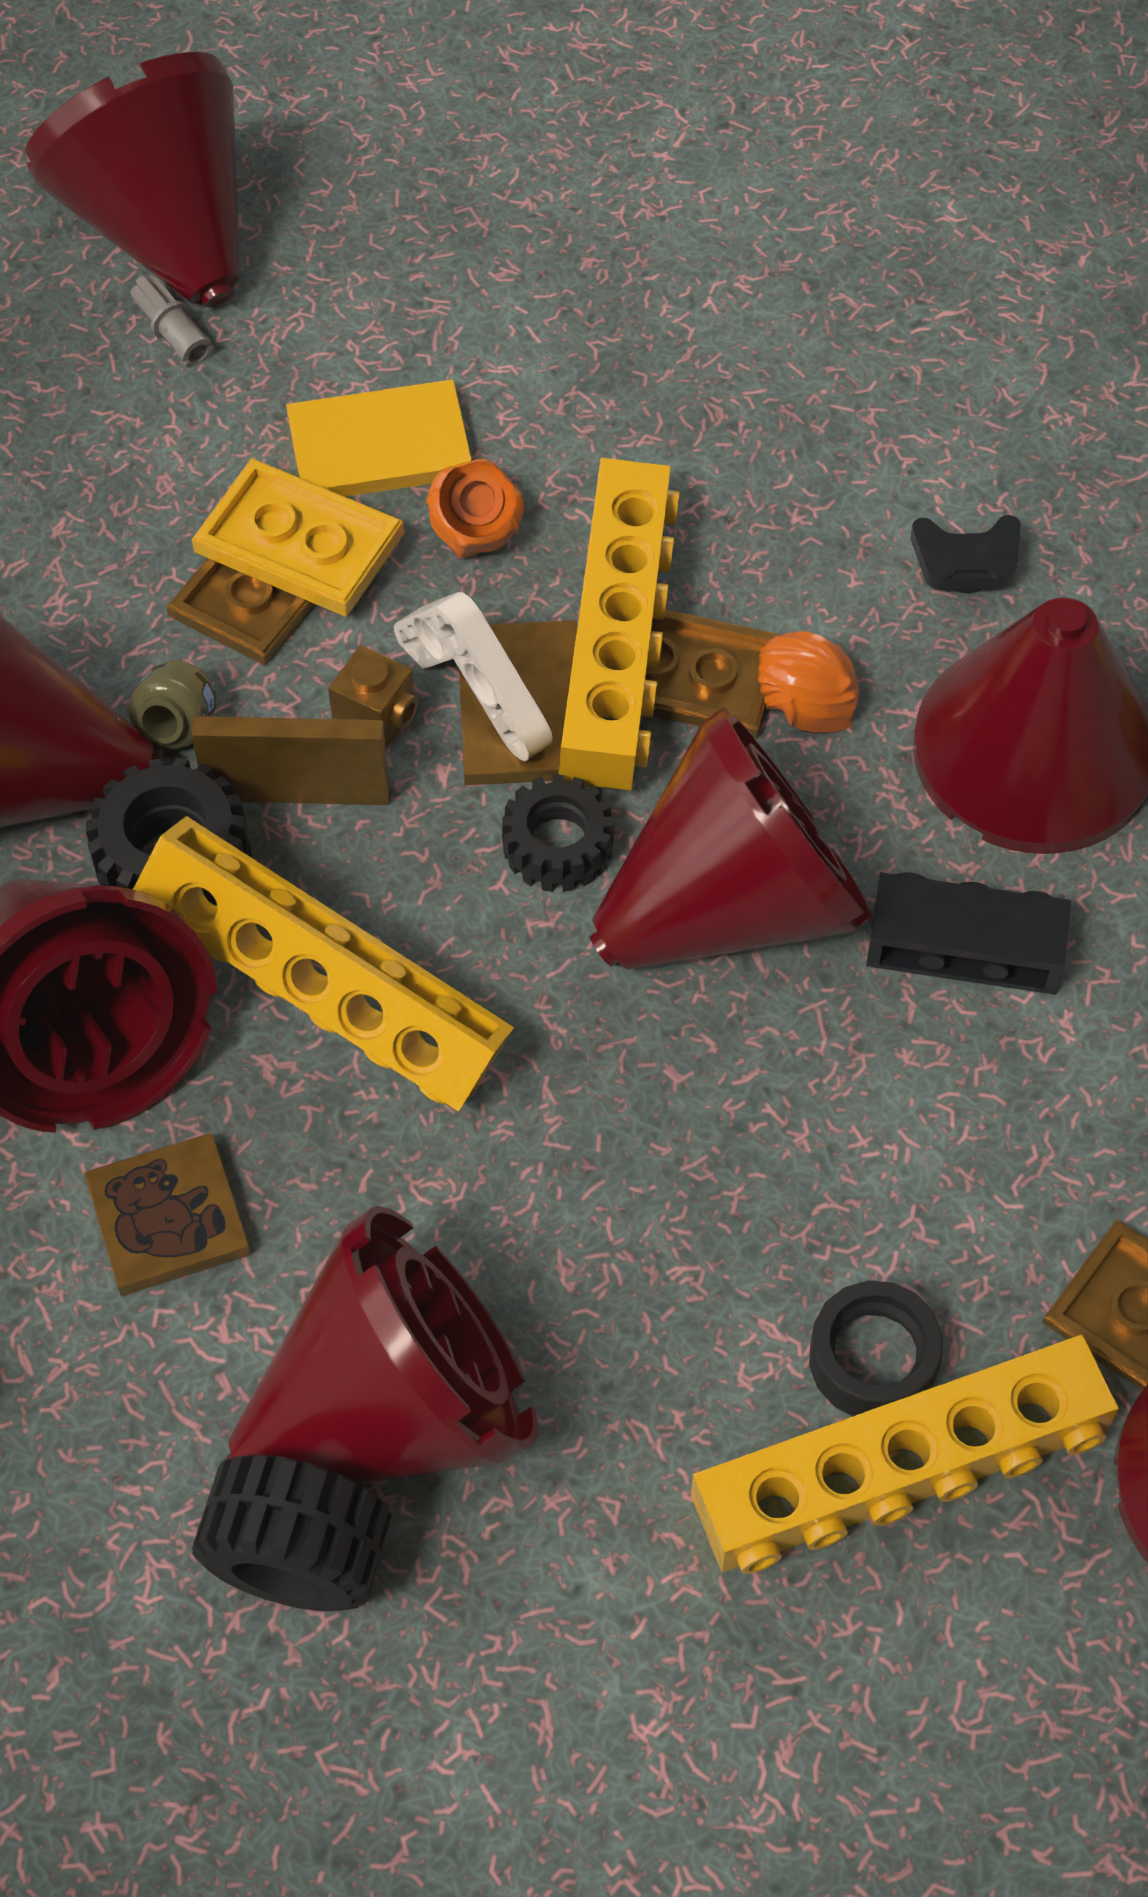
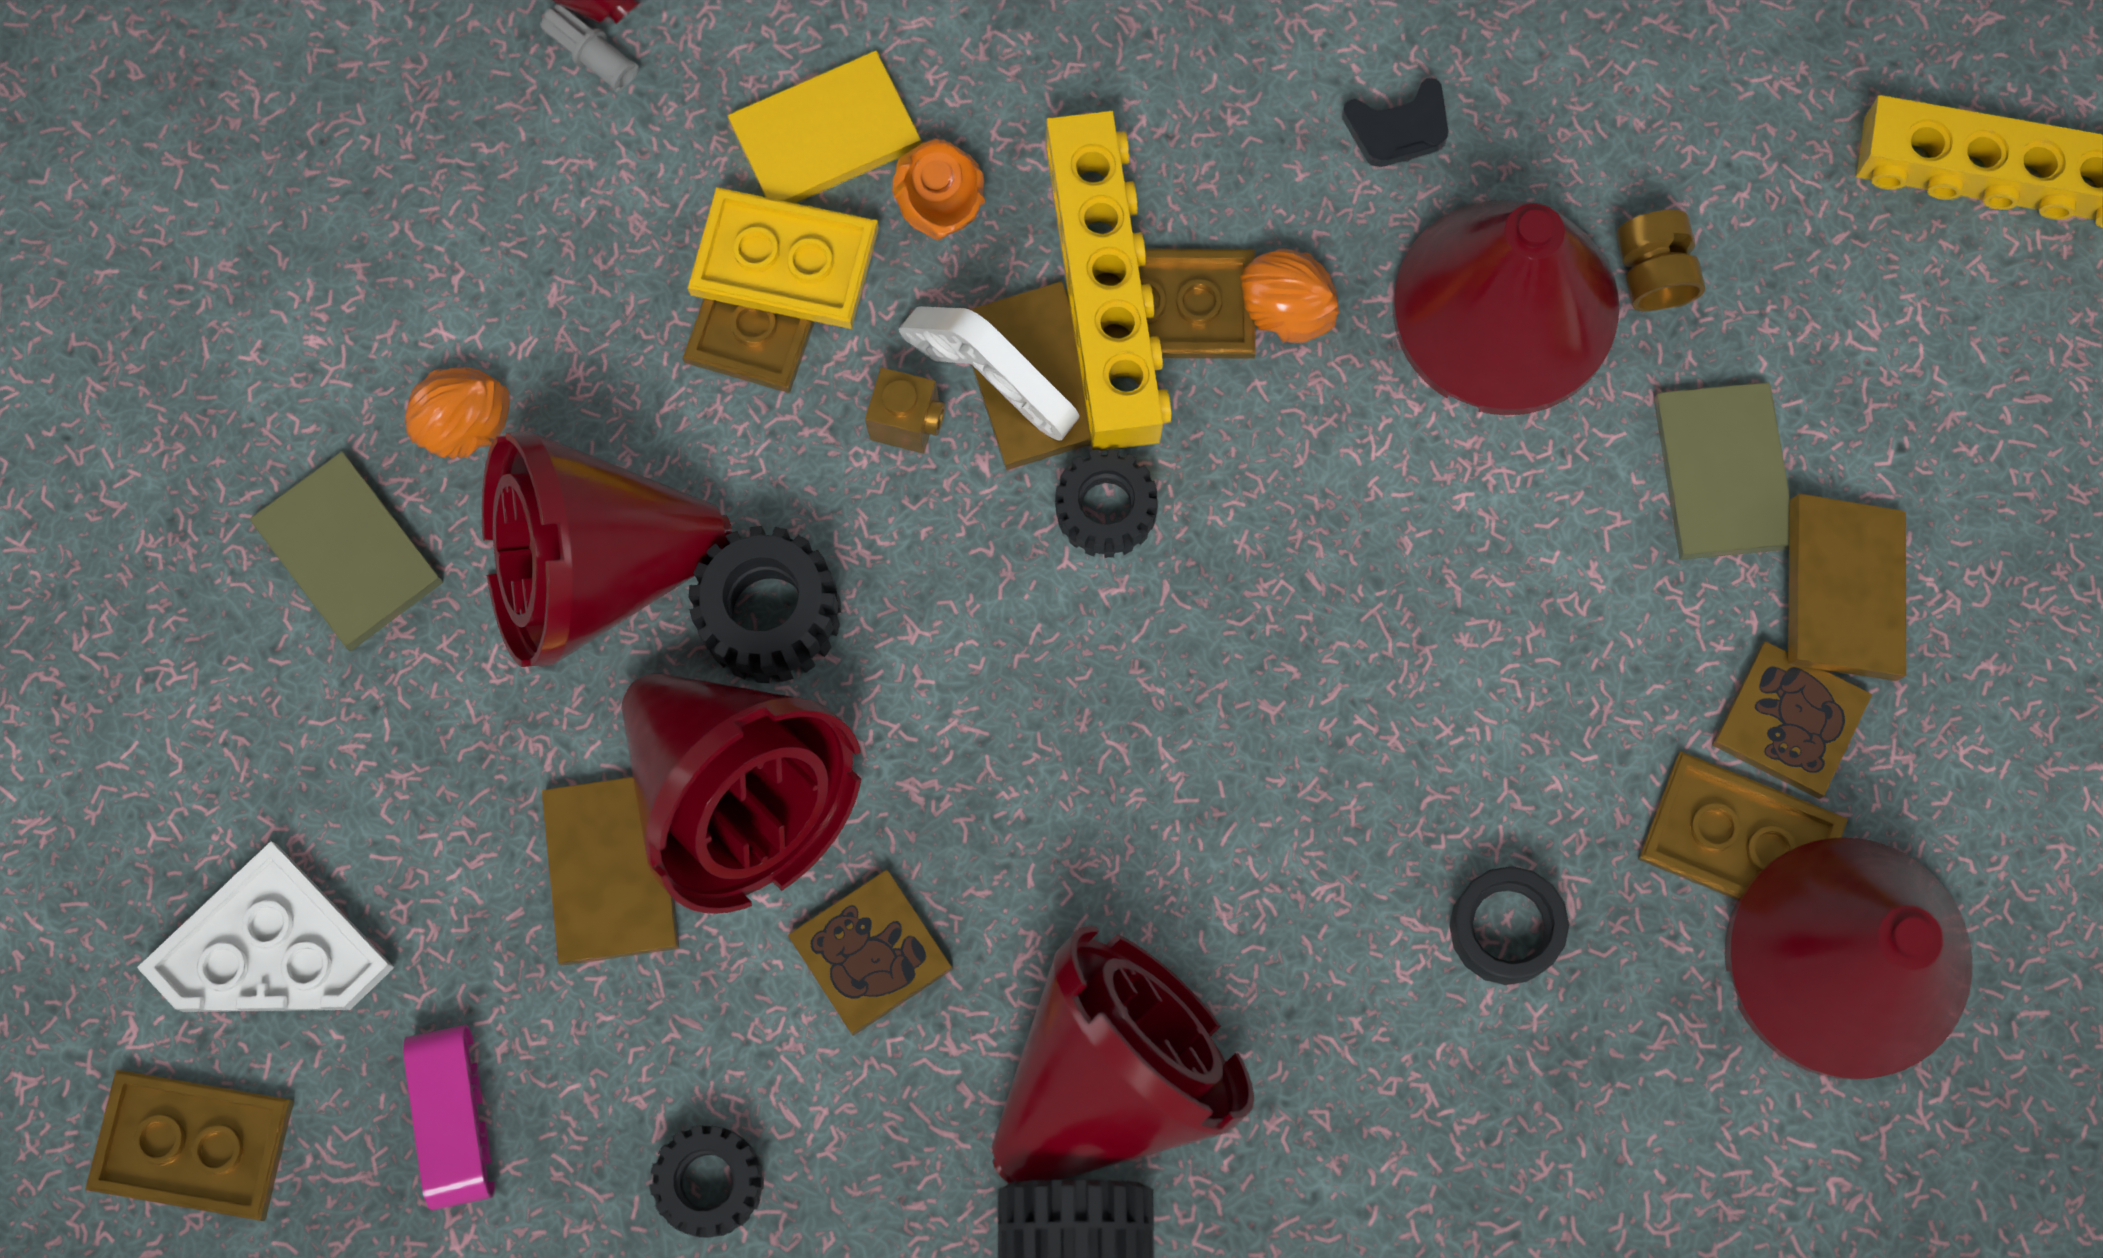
camera: 10 degrees left, 15 degrees up
(168, 701) = (723, 462): olive head -> none
(296, 758) = (854, 497): pearl gold tile -> none
(355, 963) = (944, 699): yellow brick -> none
(725, 863) = (1274, 509): dark red cone -> none
(969, 932) = (1493, 512): black brick -> none
(1057, 1378) = (1671, 915): yellow brick -> none

